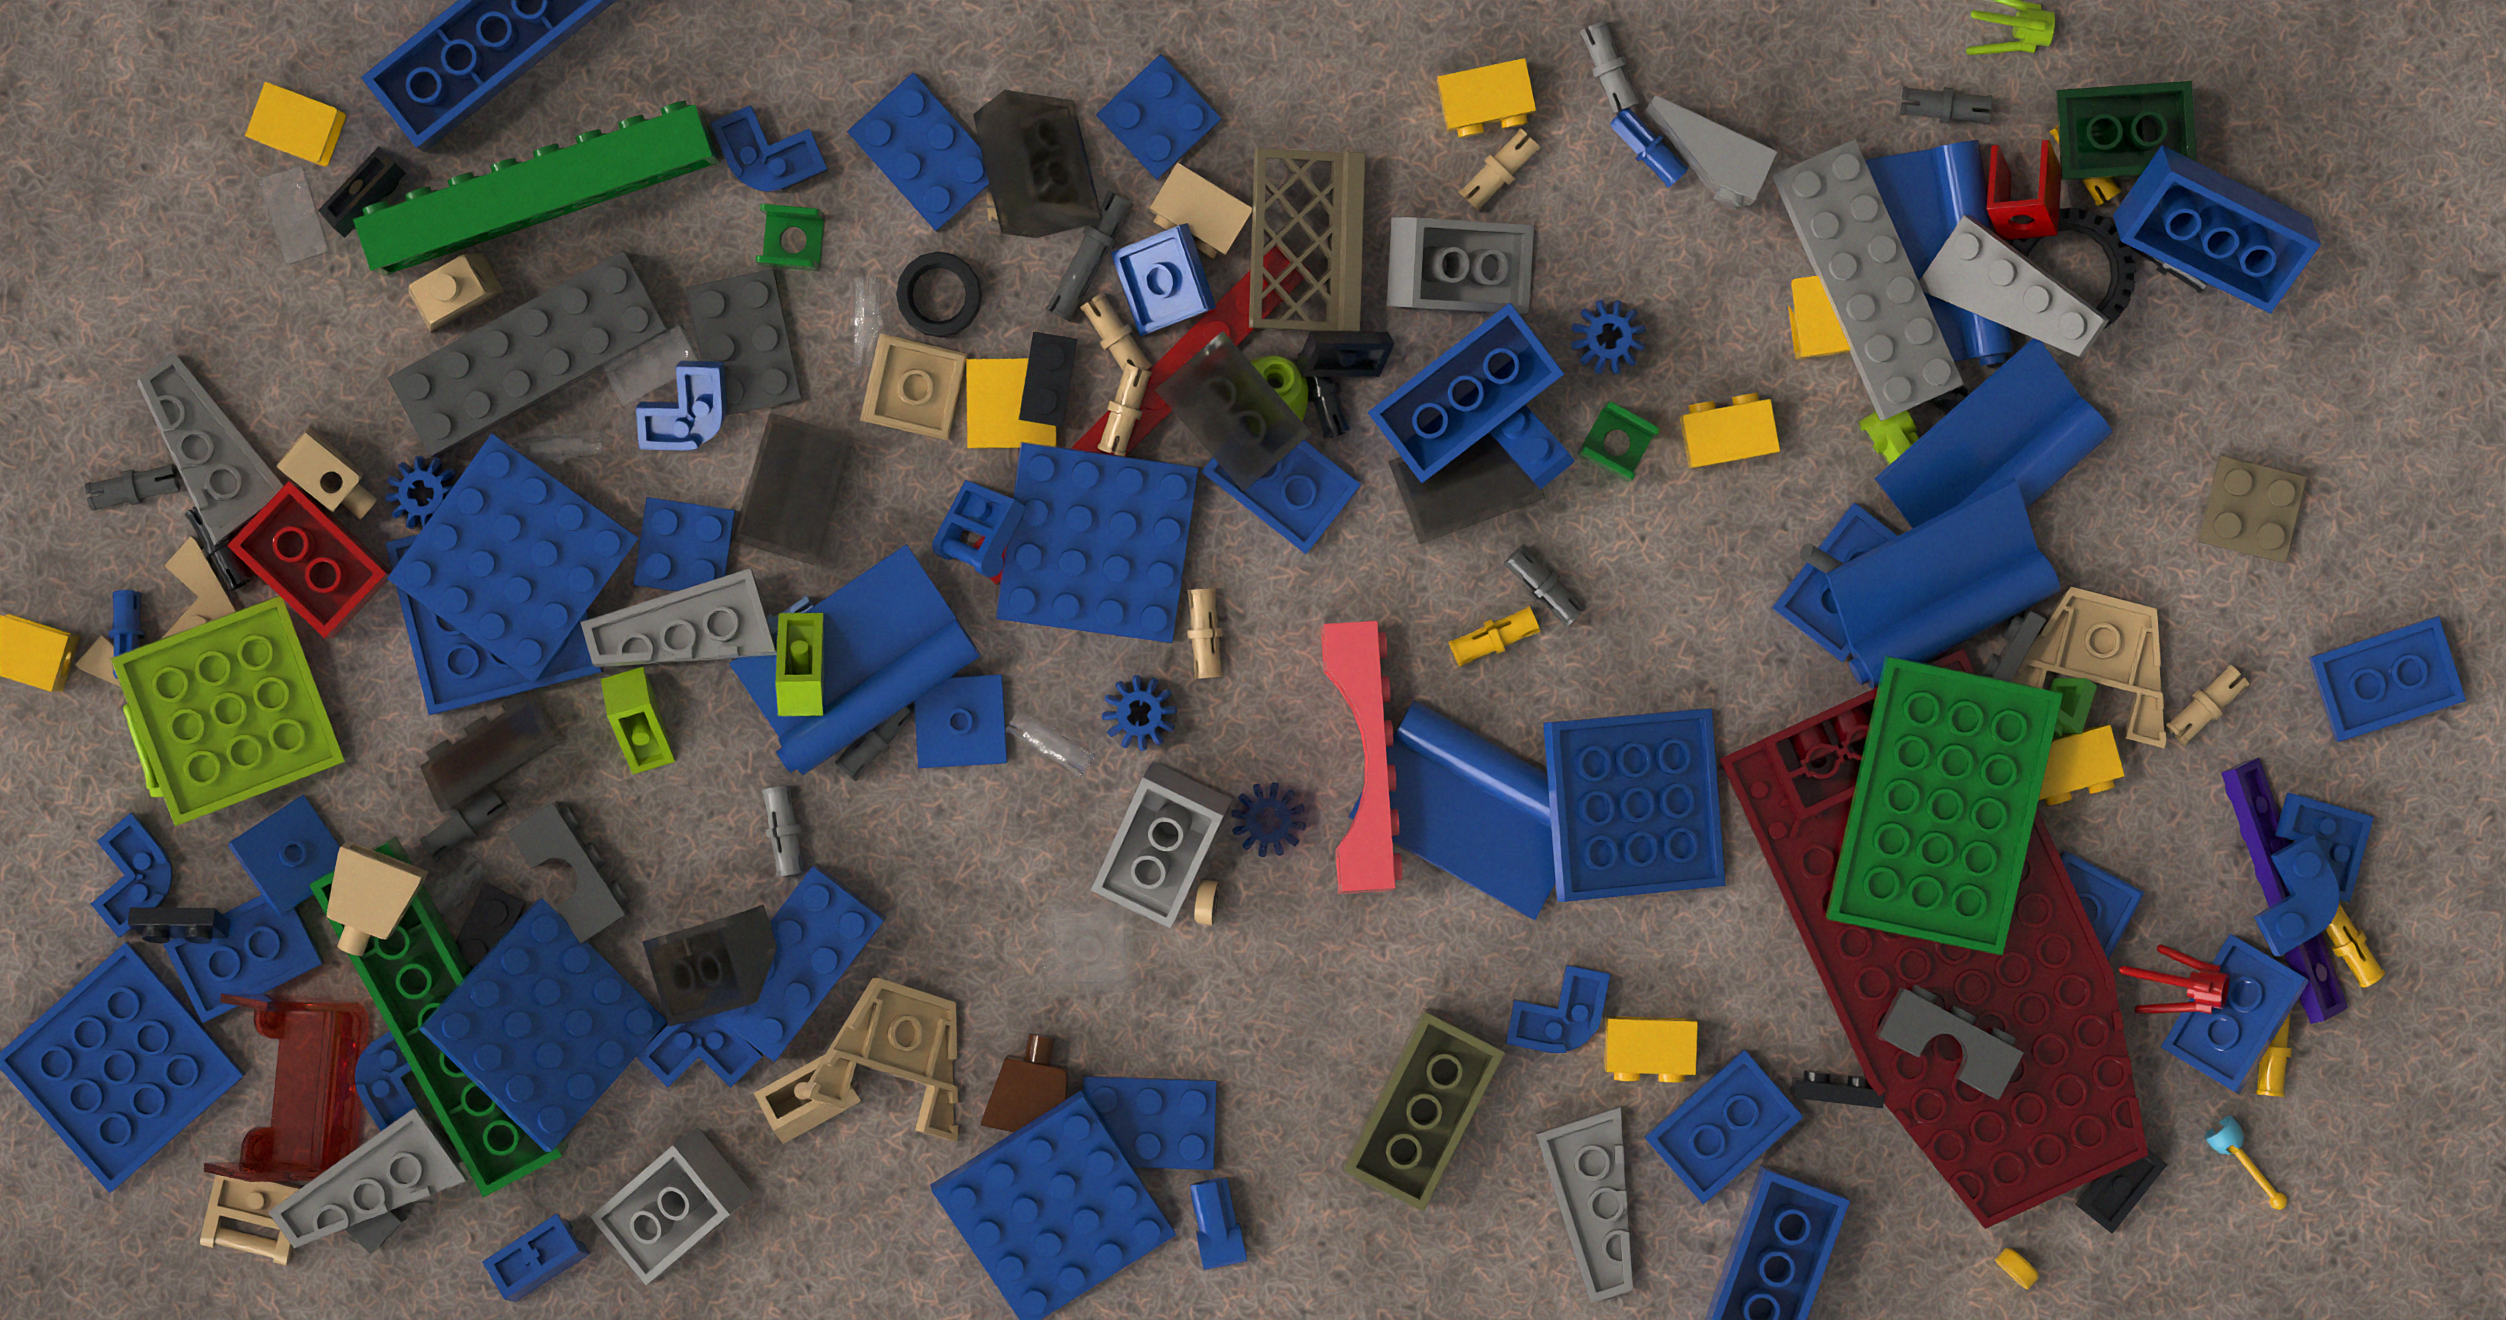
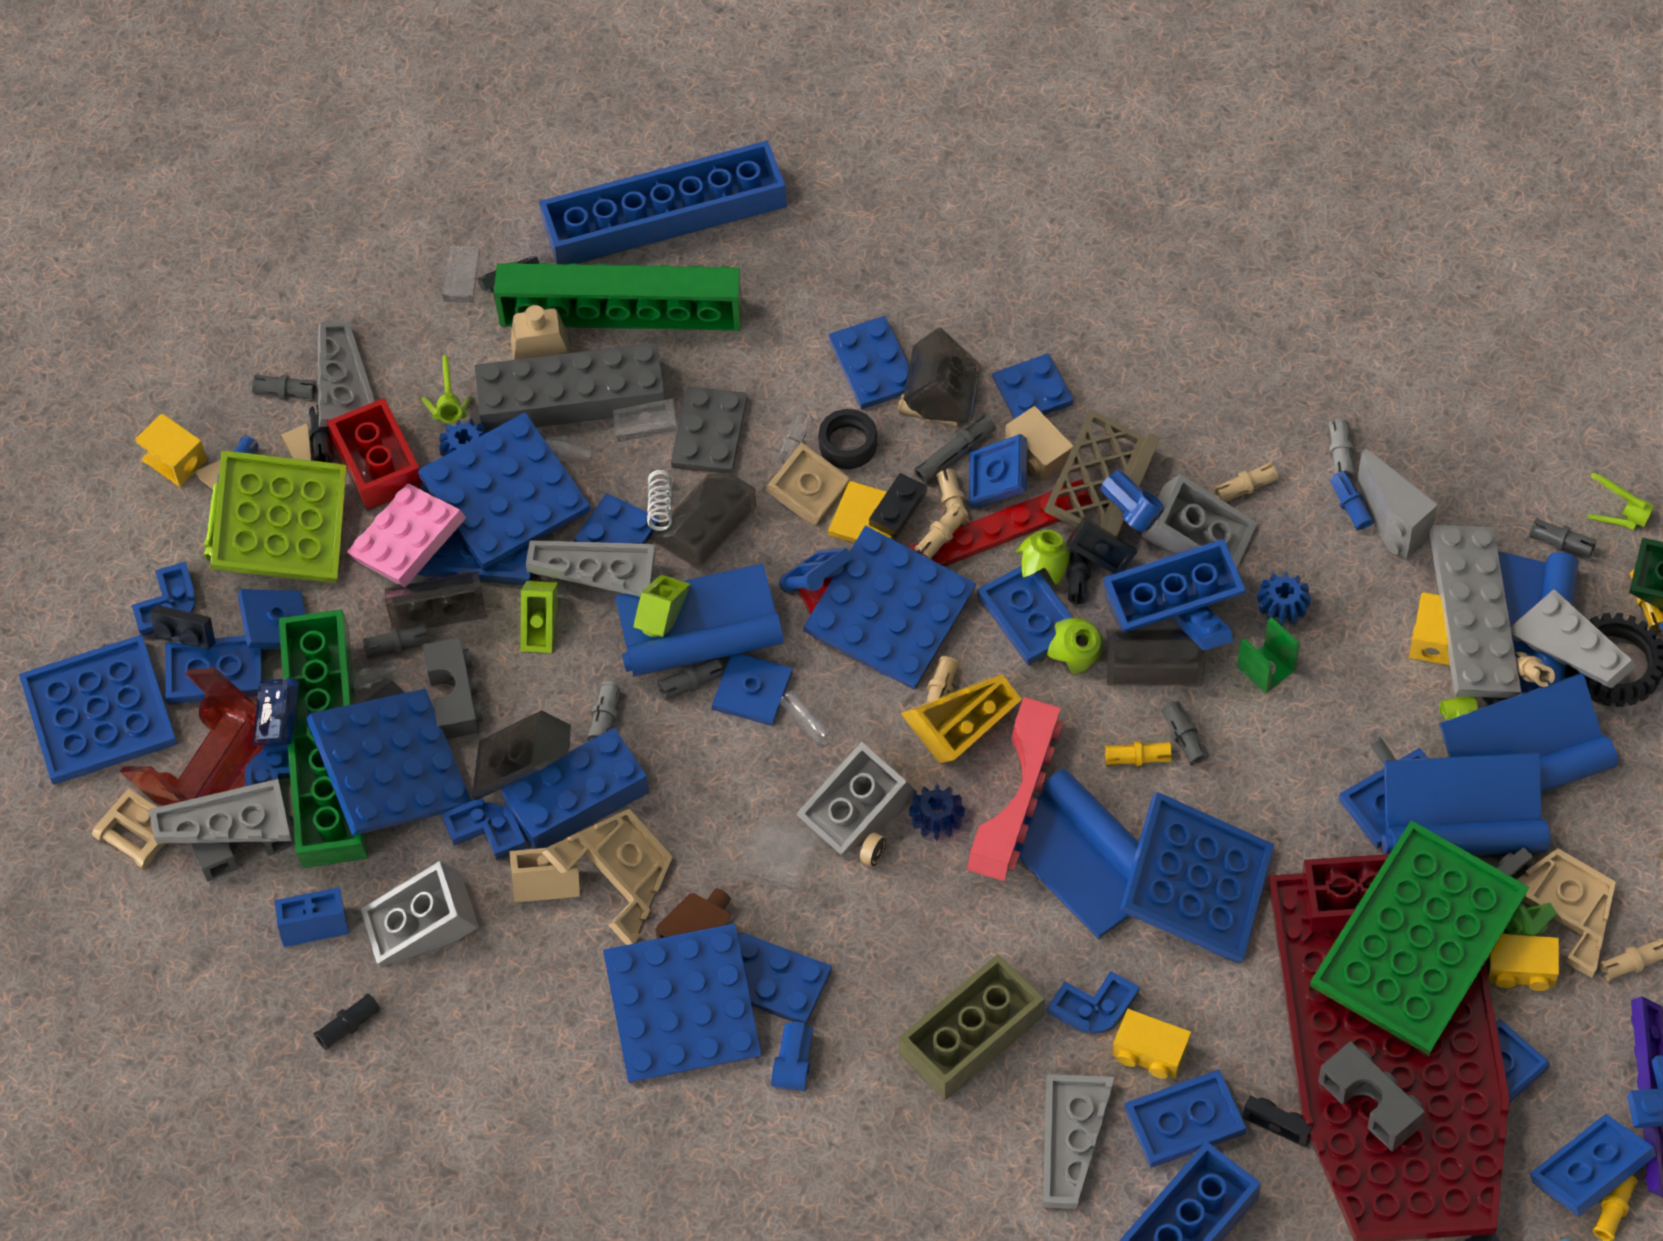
camera: 30 degrees right, 30 degrees down
(295, 124) = (485, 223): yellow piece -> none
(311, 459) = (401, 390): tan torso -> none
(367, 1017) = (275, 712): none -> tile
(370, 895) = (316, 629): tan torso -> none
(381, 456) = (448, 405): none -> lime plant
(412, 676) = (406, 535): none -> bright pink plate
(693, 418) = (661, 452): plate -> none
(700, 459) = (652, 488): none -> white piece
(765, 165) = (770, 337): blue plate -> none
(782, 217) = (772, 373): green piece -> none
(1154, 715) = (865, 726): blue gear -> none
(1233, 411) = (1011, 548): clear smoke slope -> none
(1254, 676) = (961, 717): none -> yellow wedge
(1348, 501) = (1066, 649): none -> lime piece
(1375, 284) = (1138, 505): none -> blue piece
(1486, 97) = (1252, 437): yellow brick -> none
(1730, 431) = (1347, 679): yellow brick -> none
(1970, 347) = (1534, 670): none -> tan pin
(2043, 210) = (1613, 594): red piece -> none
(2207, 987) = (1575, 1134): red plant -> none

